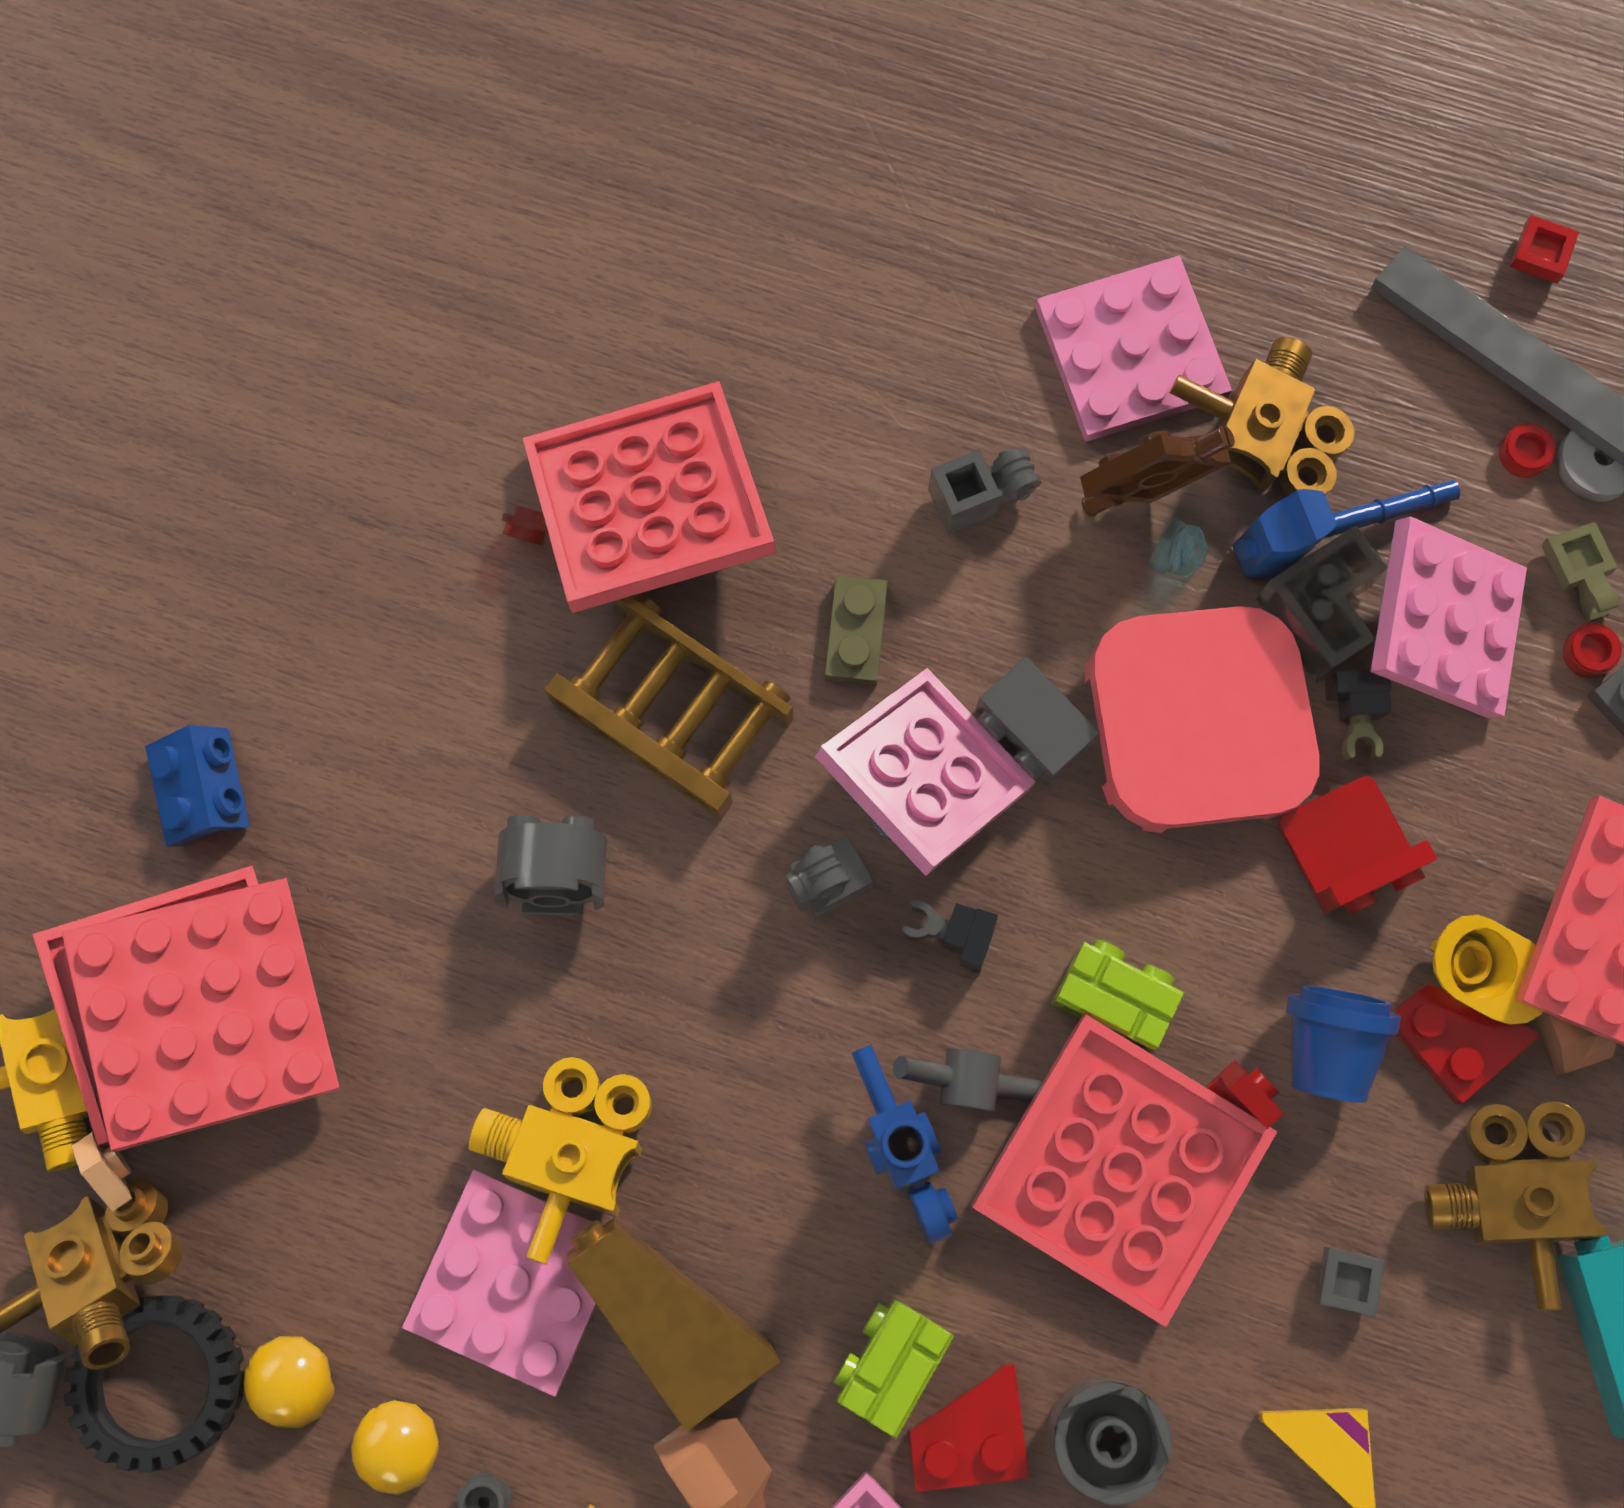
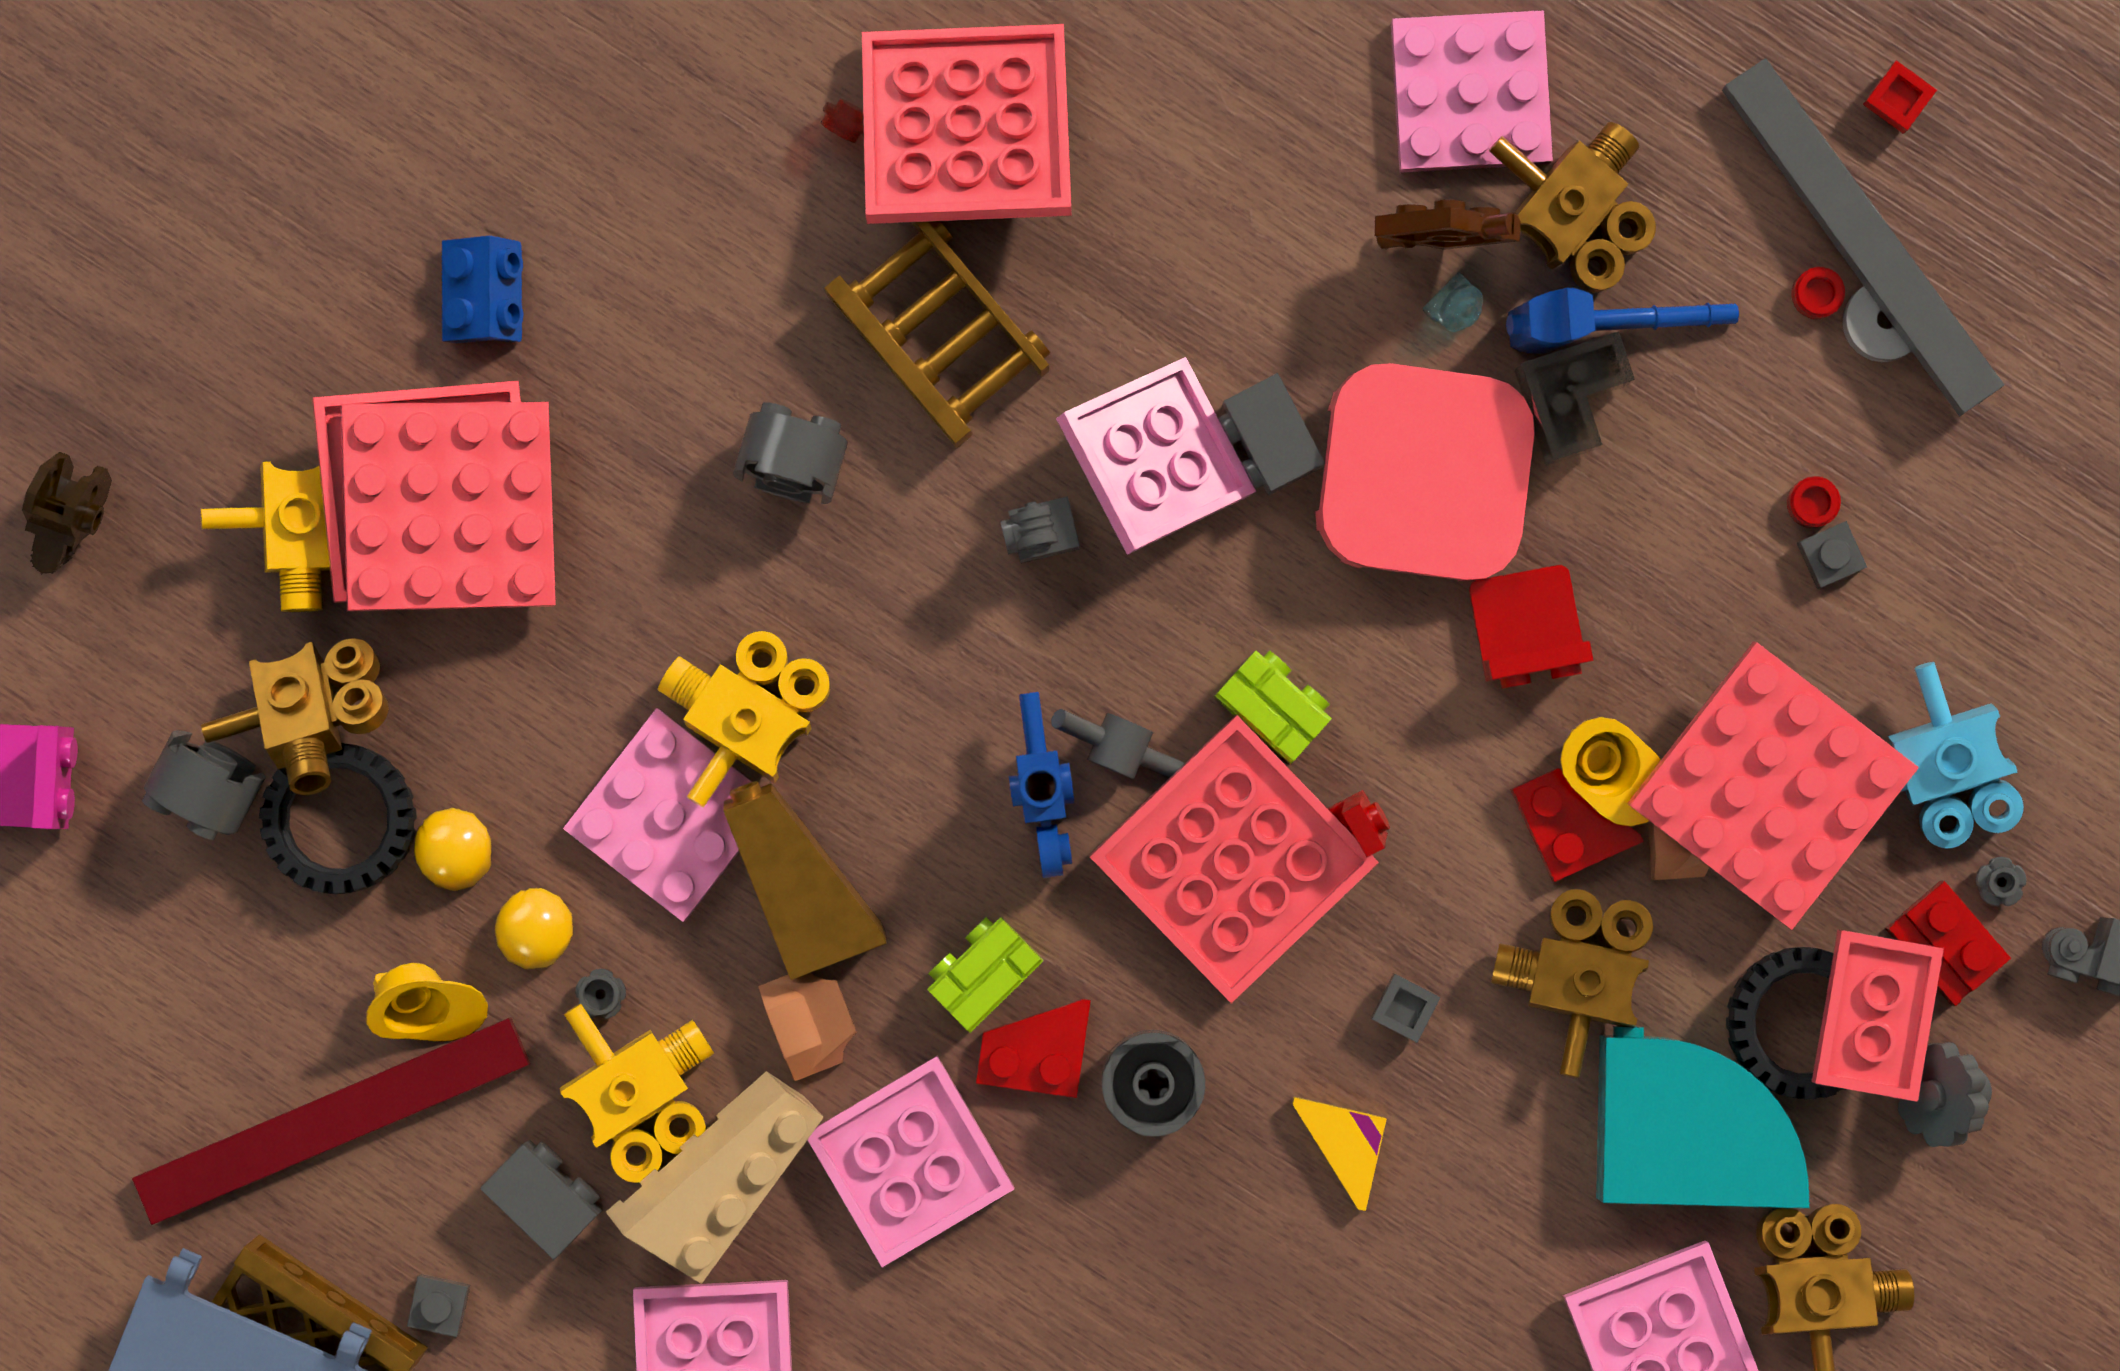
camera: 15 degrees right, 10 degrees up
(103, 1171) = (334, 623): light nougat plate -> none
(856, 630) = (1130, 301): olive plate -> none
(966, 932) = (1152, 611): black piece -> none
(971, 491) = (1273, 199): dark grey brick -> none
(1338, 1041) = (1457, 797): blue piece -> none
(1361, 698) = (1581, 493): black piece -> none
(1449, 618) = (1682, 439): bright pink plate -> none
(1583, 561) = (1830, 414): olive plate -> none

